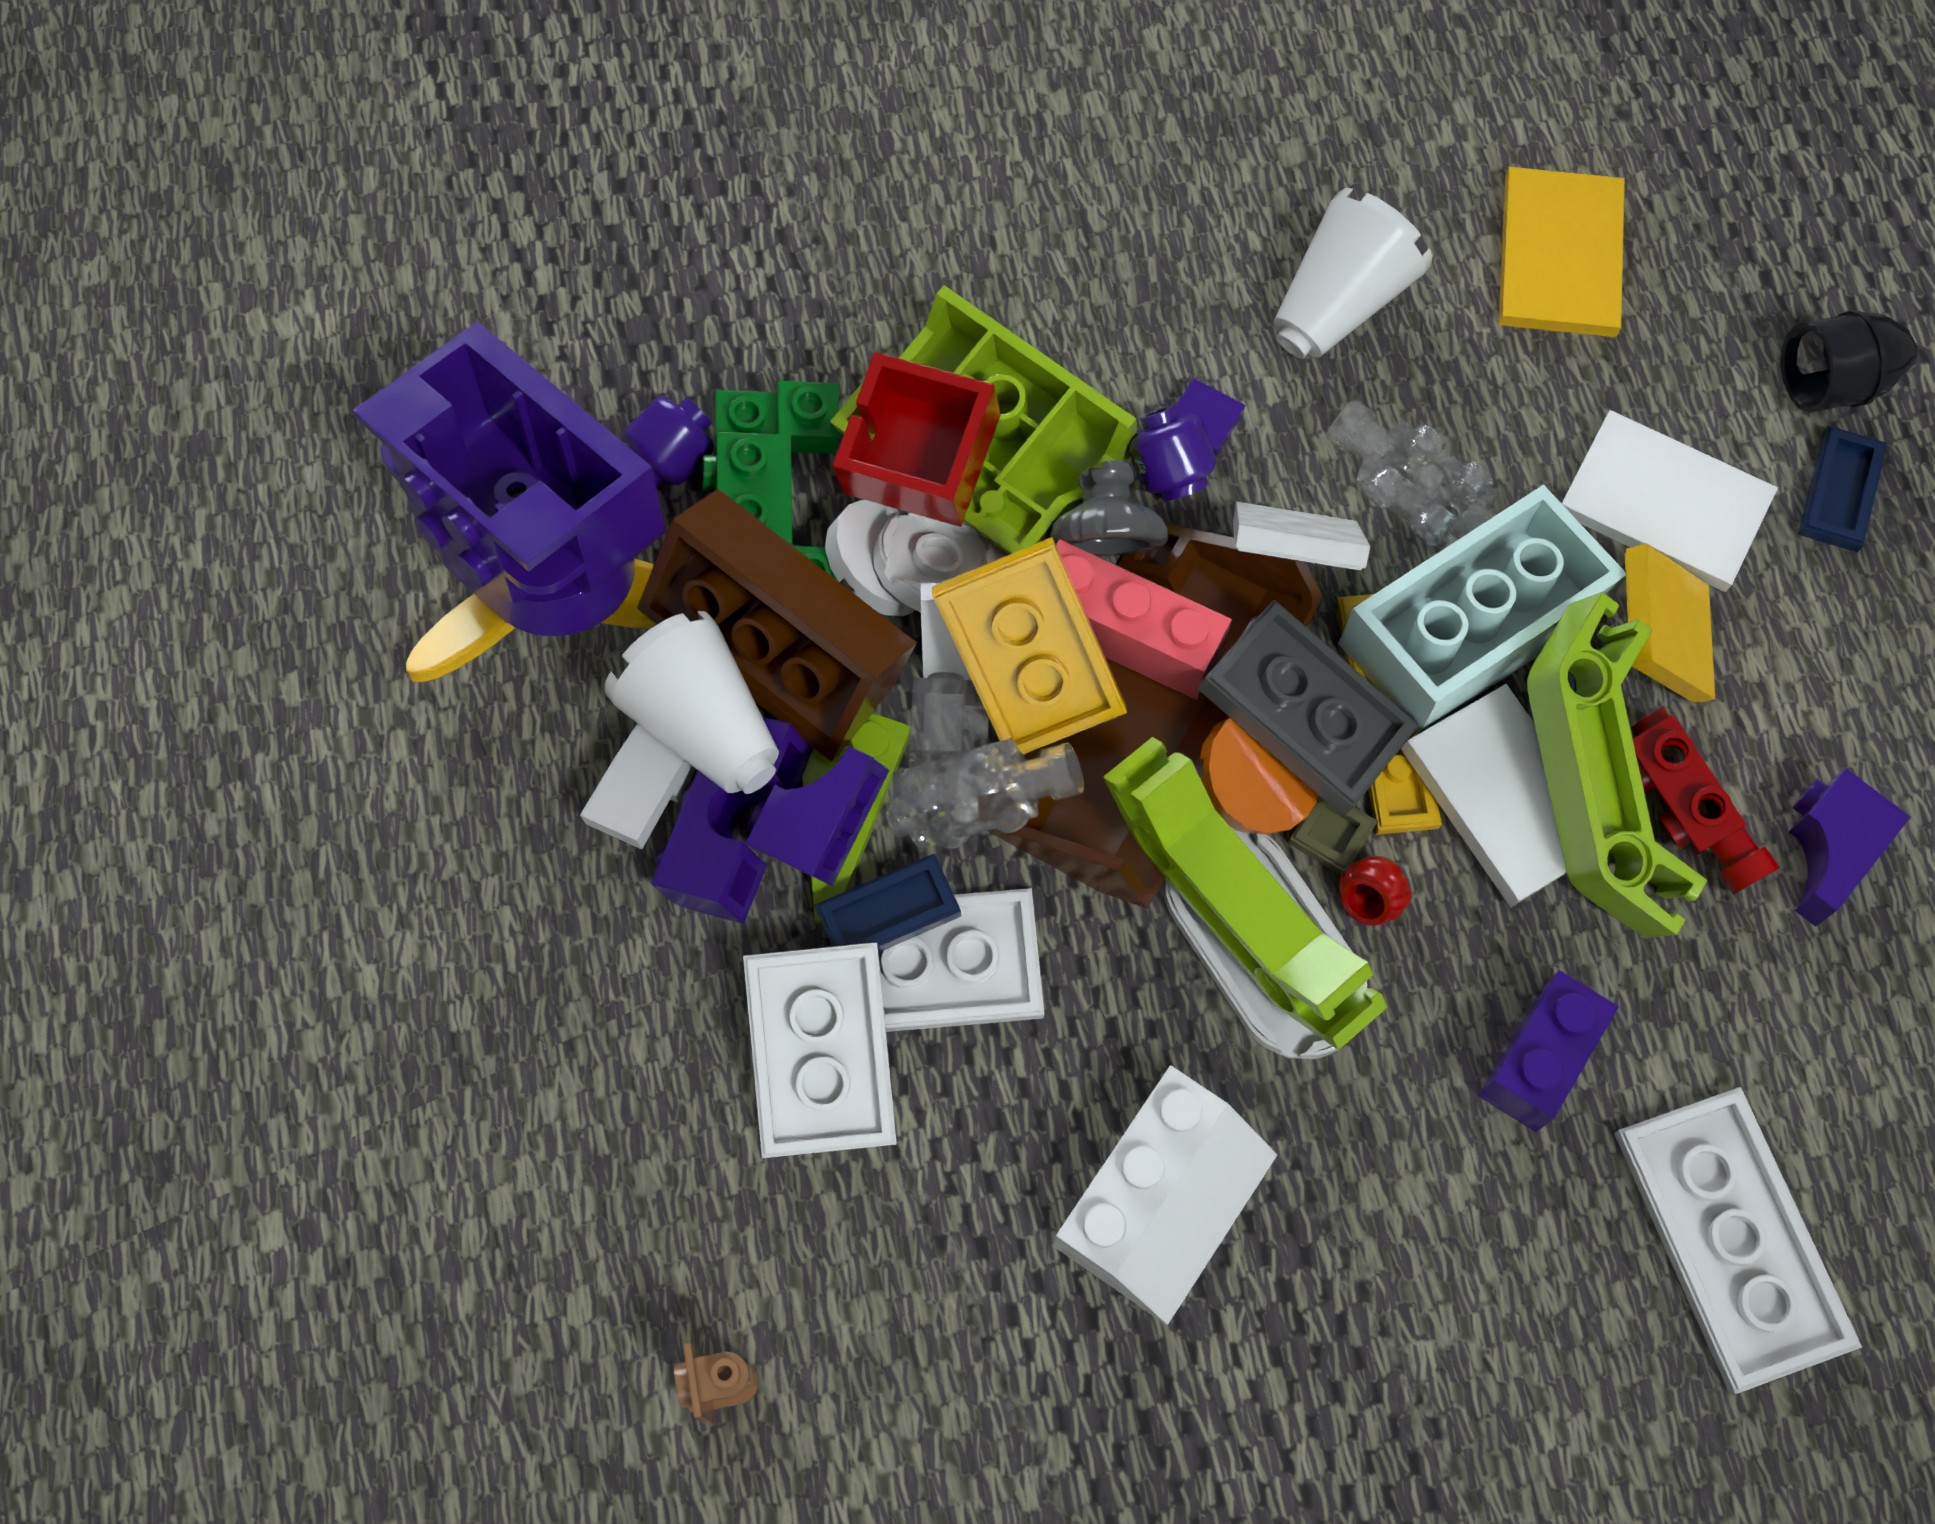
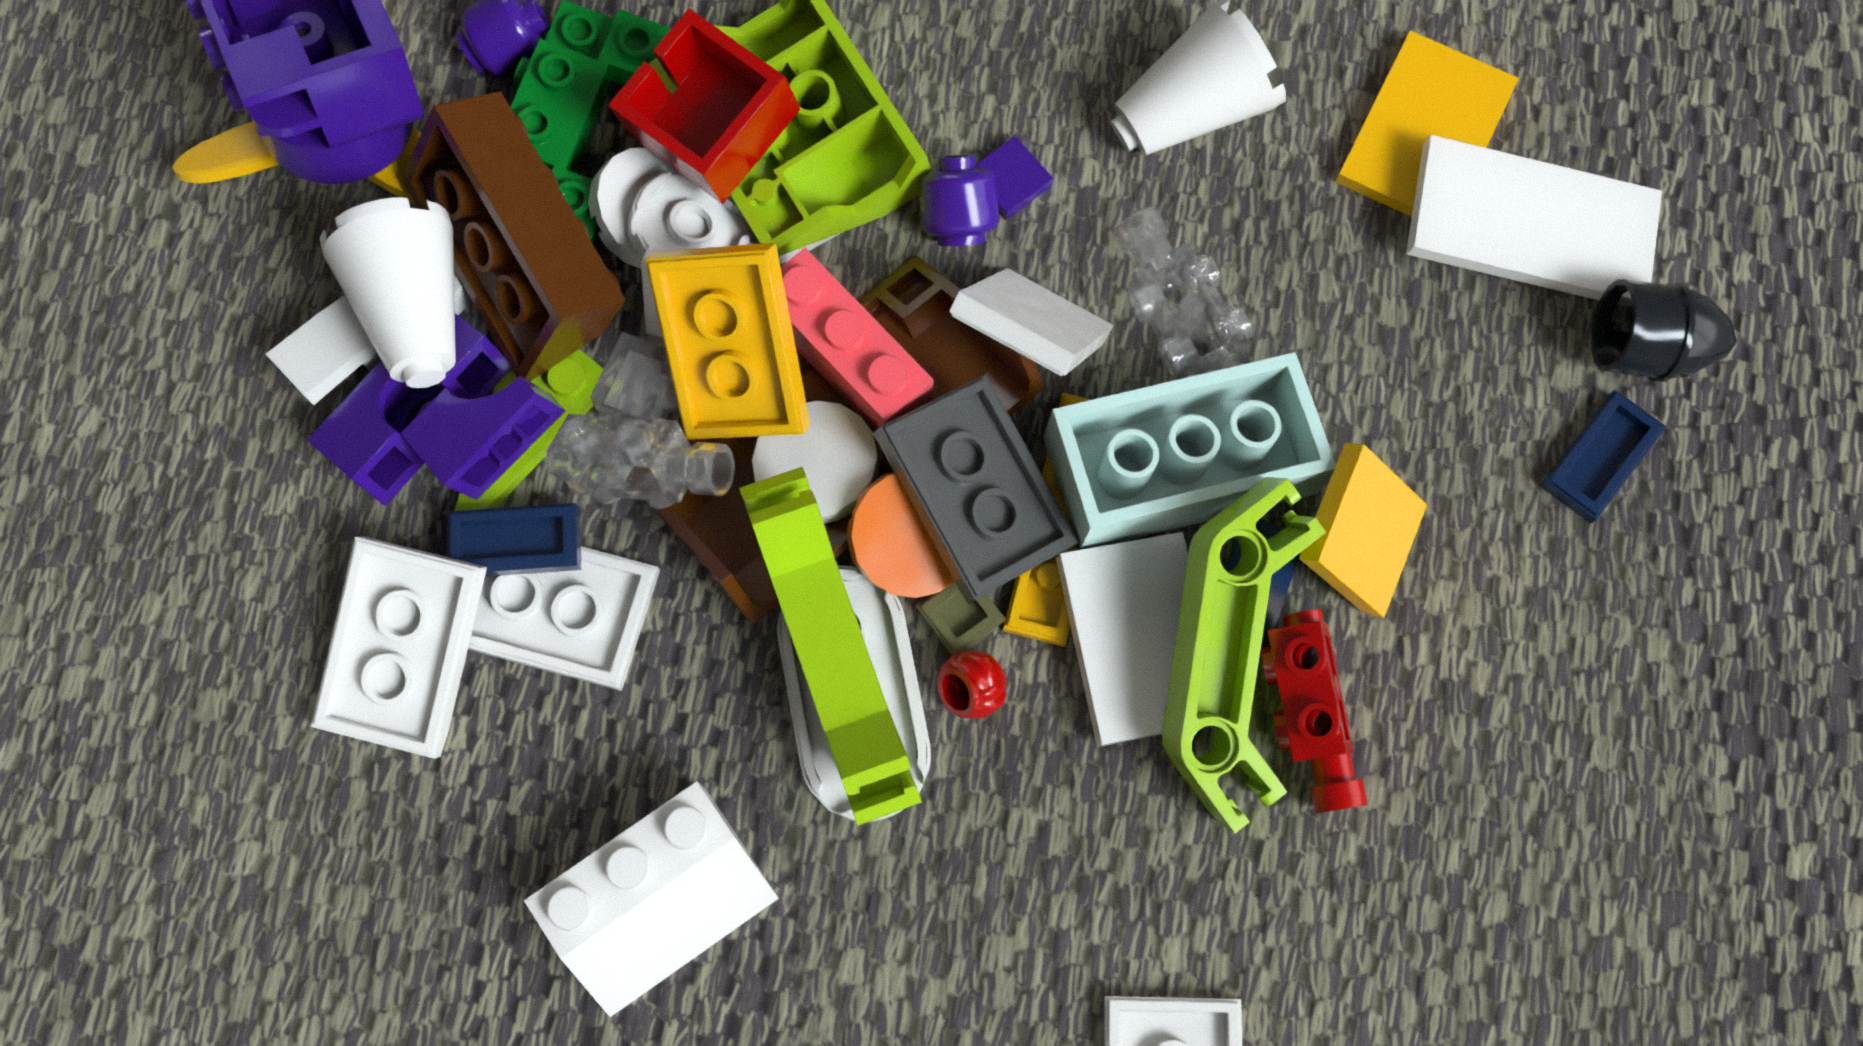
camera: 20 degrees right, 5 degrees up
(713, 1382) = (159, 912): medium nougat hinge -> none
(1108, 518) = (866, 240): dark grey hair -> none
(1153, 710) = (834, 452): none -> white tile
(1548, 1051) = (1066, 897): dark purple brick -> none
(1669, 496) = (1423, 408): white tile -> none
(1691, 300) = (1531, 220): none -> white tile
(1842, 836) = (1448, 794): dark purple arch -> none

